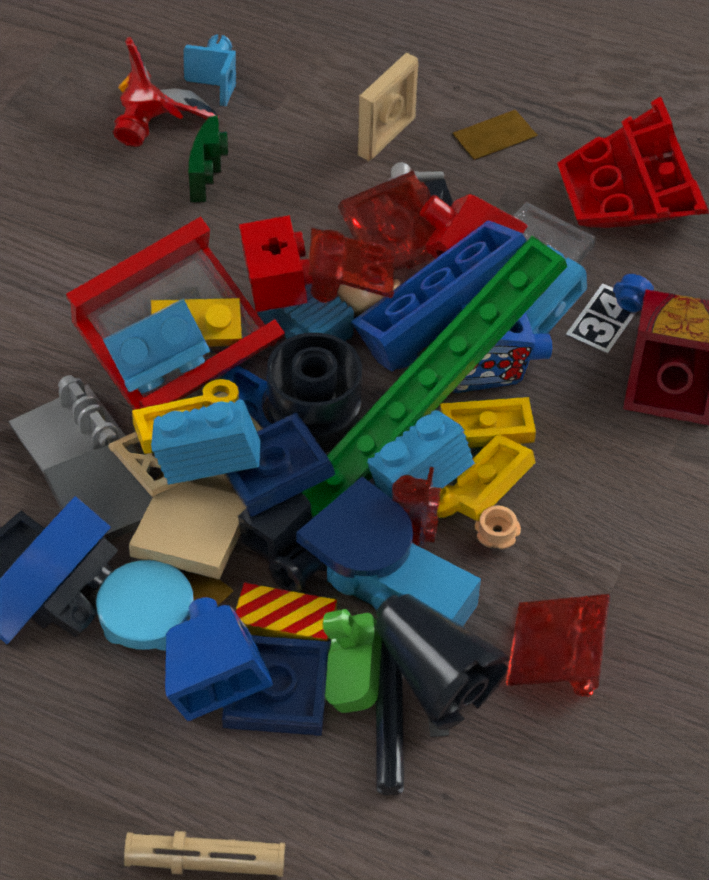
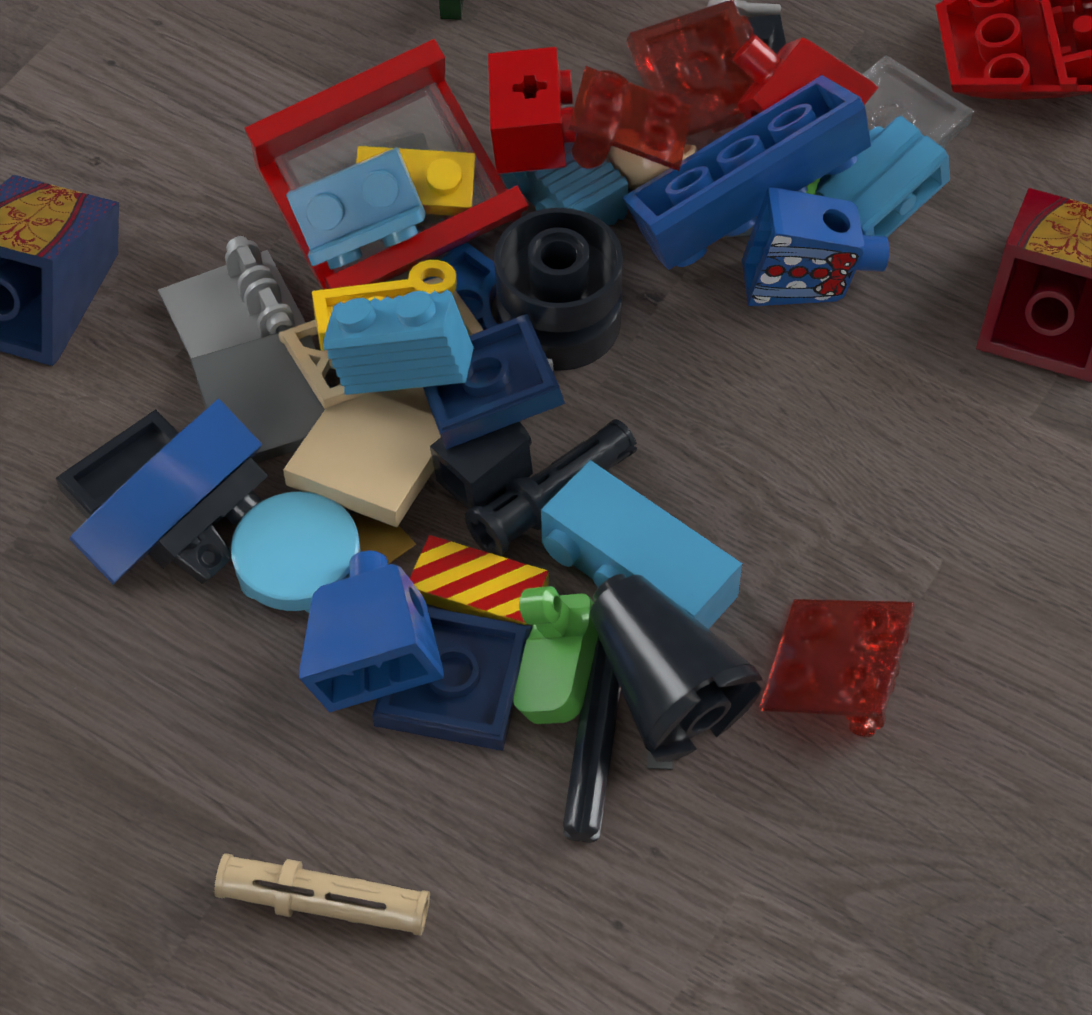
camera: 10 degrees right, 5 degrees up
(360, 533) = (588, 485): dark blue tile -> none
(421, 504) = (668, 460): clear red hinge -> none
(431, 443) = (686, 396): dark azure brick -> none
(441, 365) = (719, 280): green tile -> none
(487, 418) = (787, 351): yellow plate -> none
(488, 480) = (767, 428): yellow hinge -> none
(497, 518) = (783, 482): light nougat plate -> none
(601, 320) = (970, 222): sticker -> none
(631, 292) = (1009, 189): blue plate -> none

